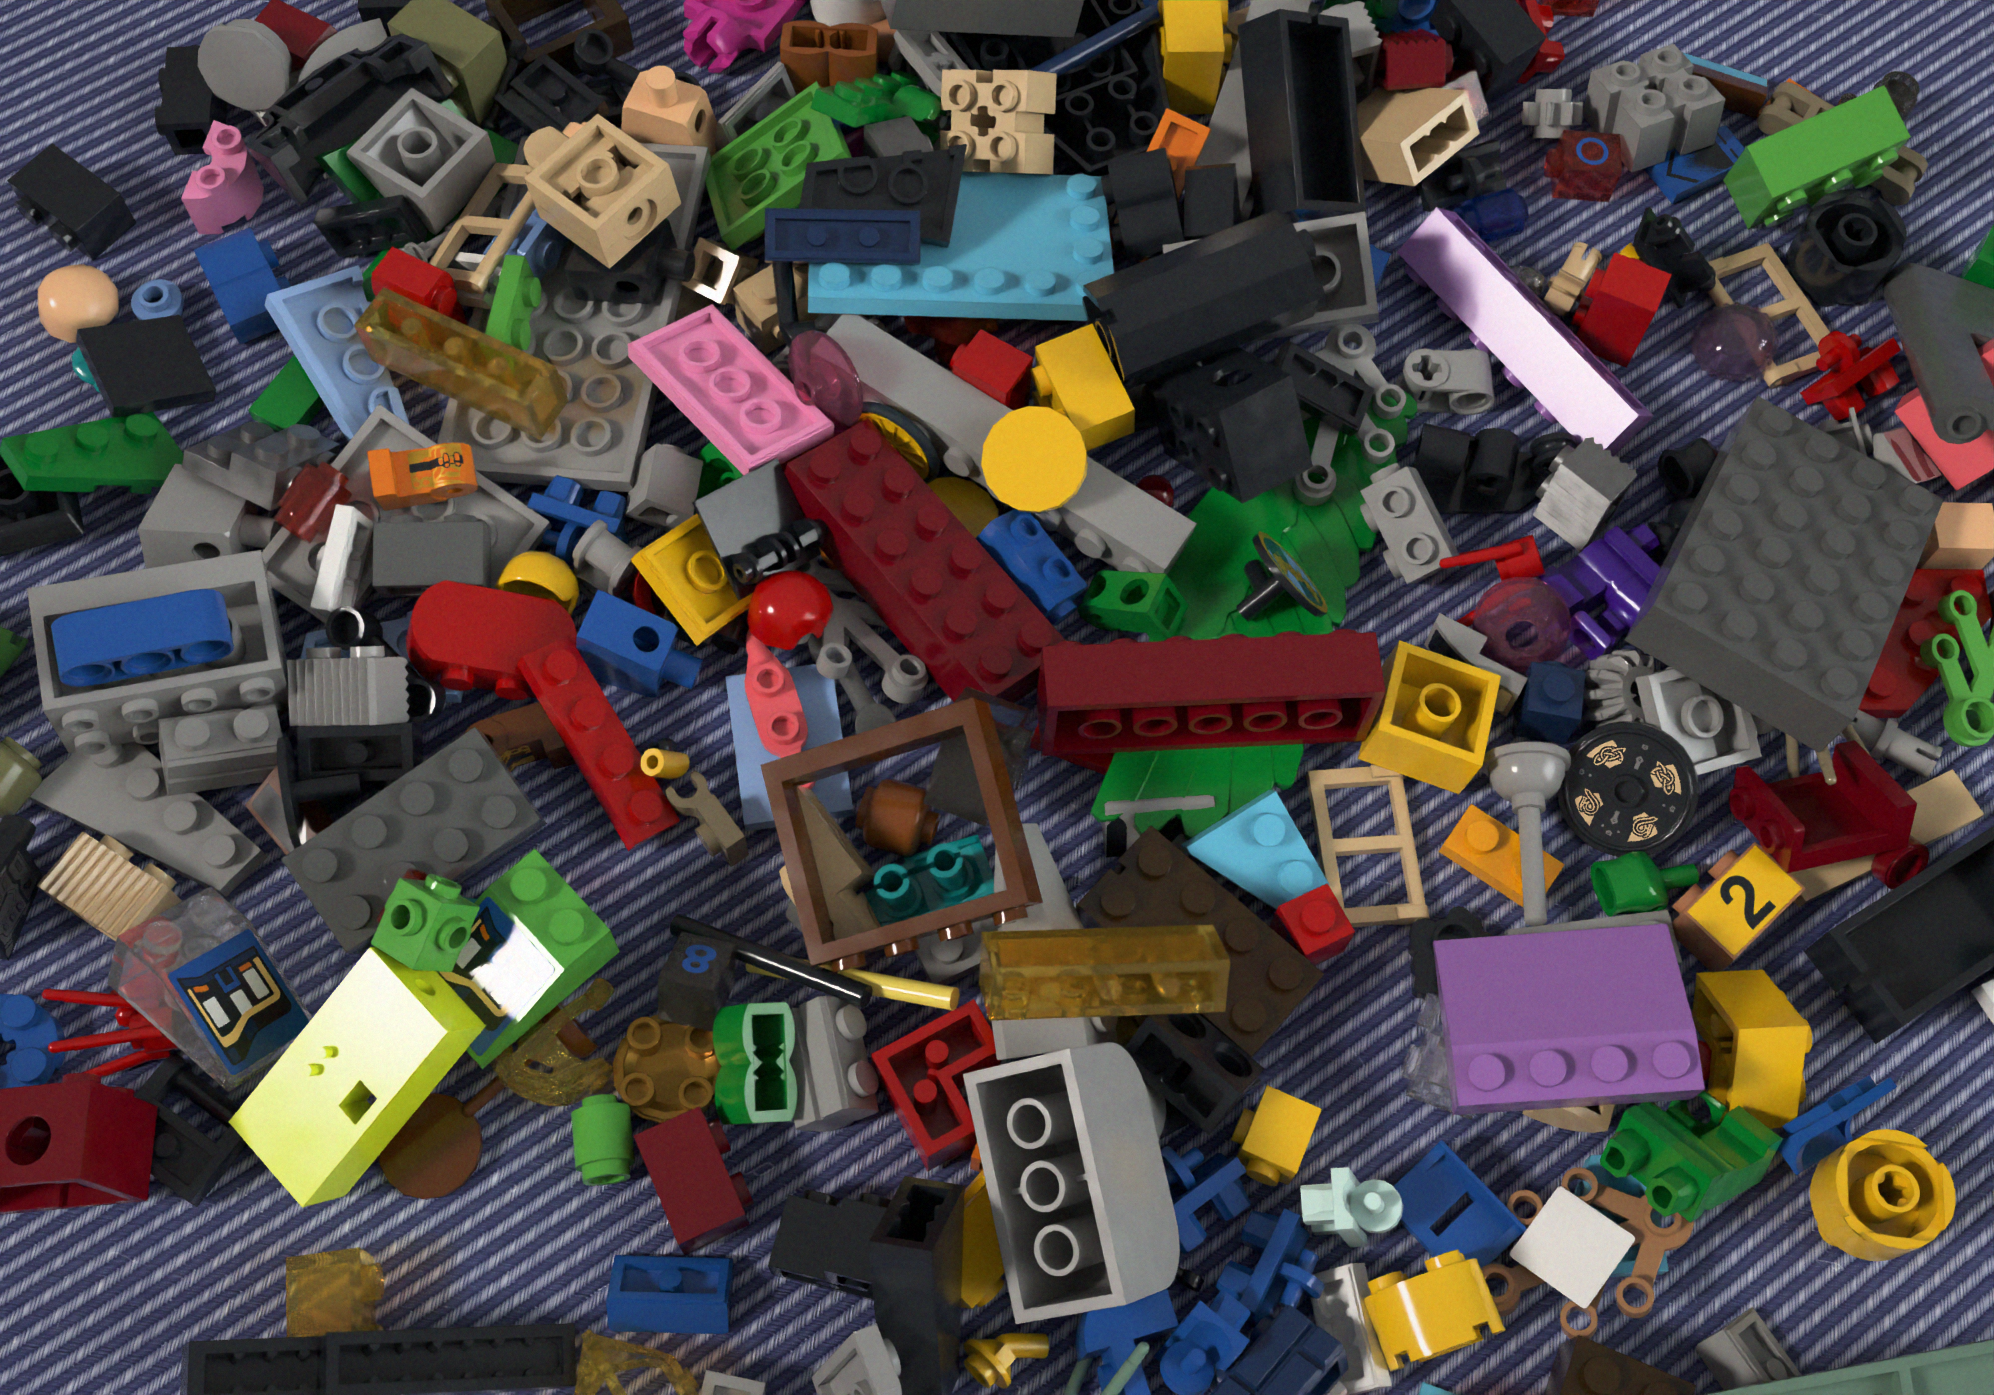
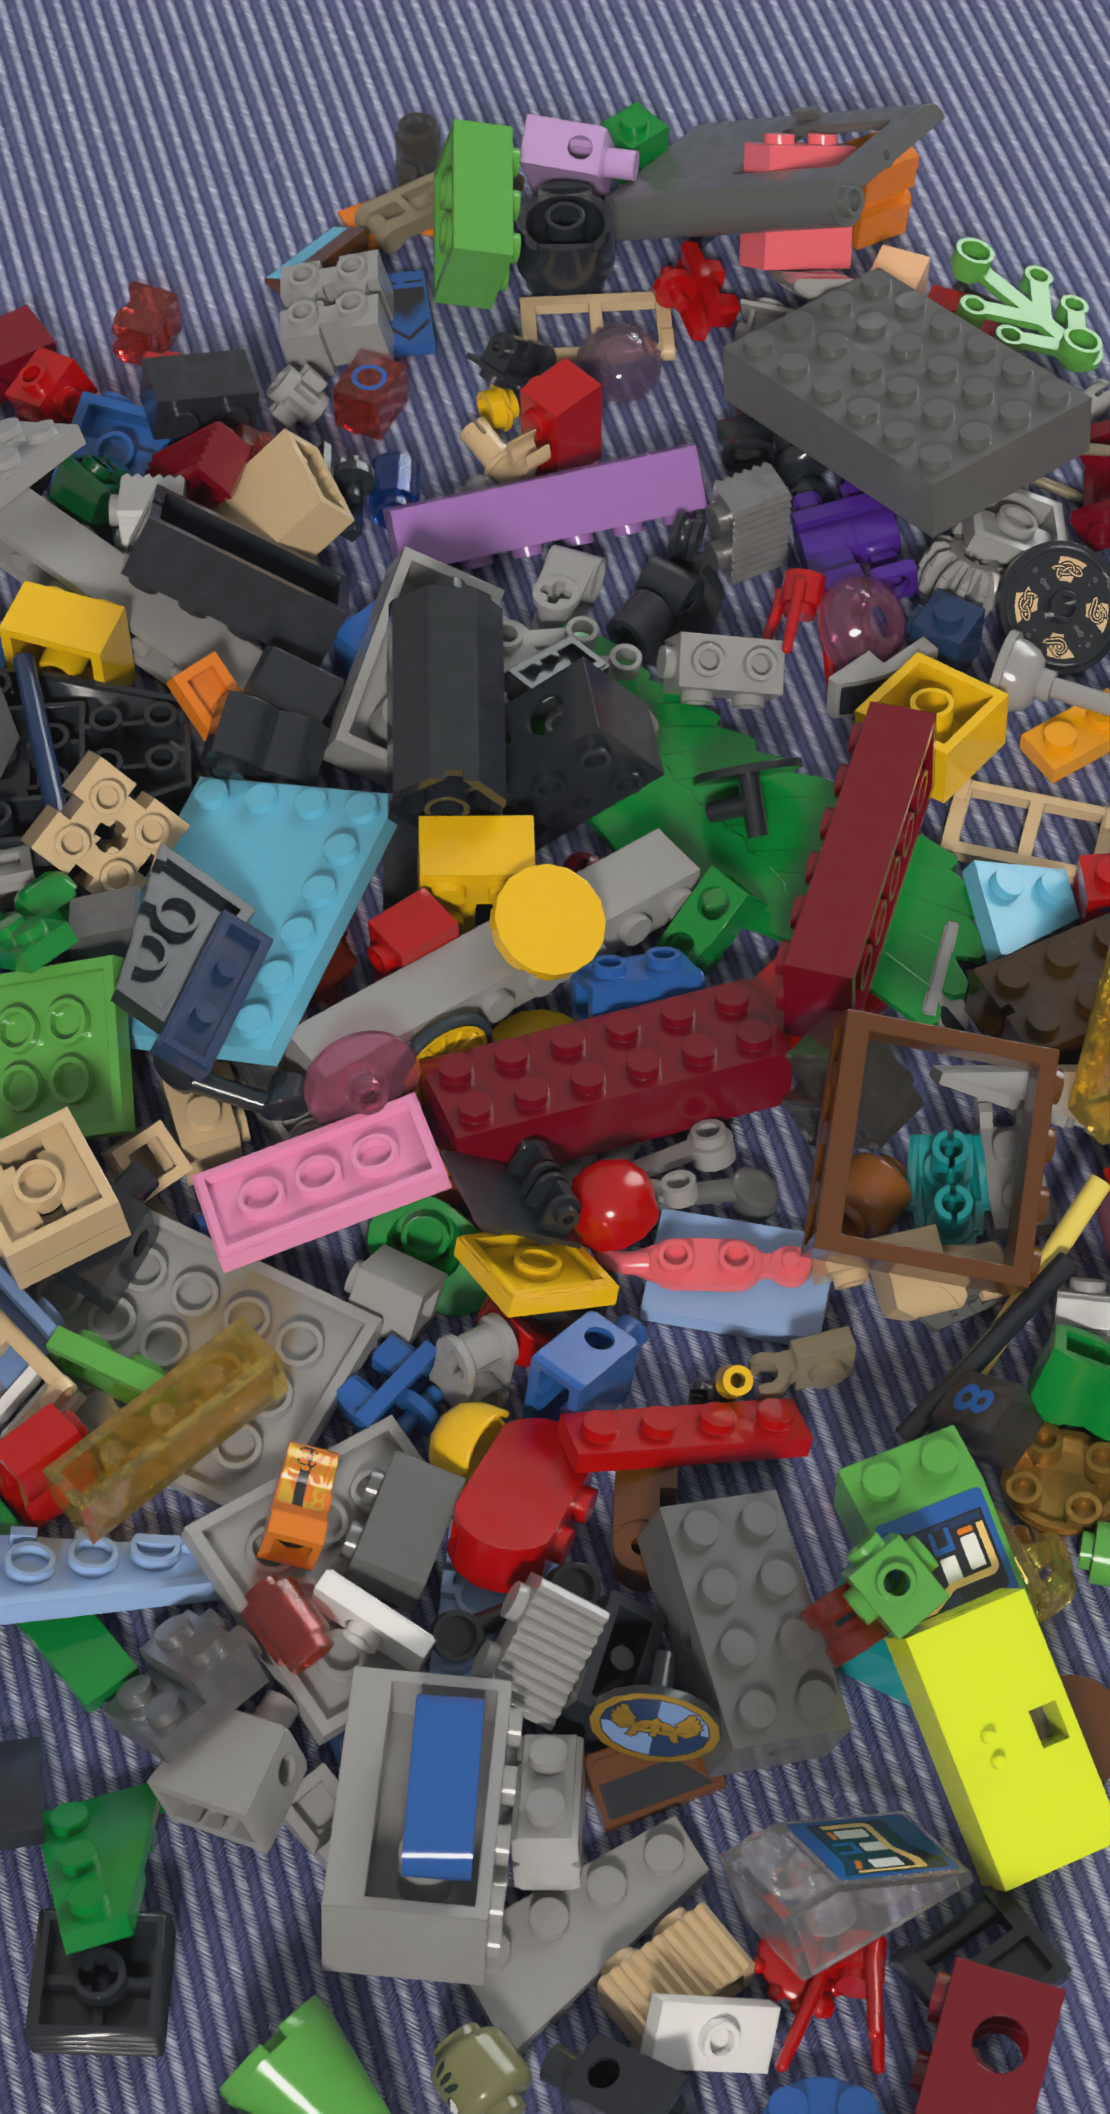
camera: 65 degrees left, 10 degrees down
(56, 928) = (711, 2032): none -> white plate
(1943, 227) = (573, 152): none -> lavender torso

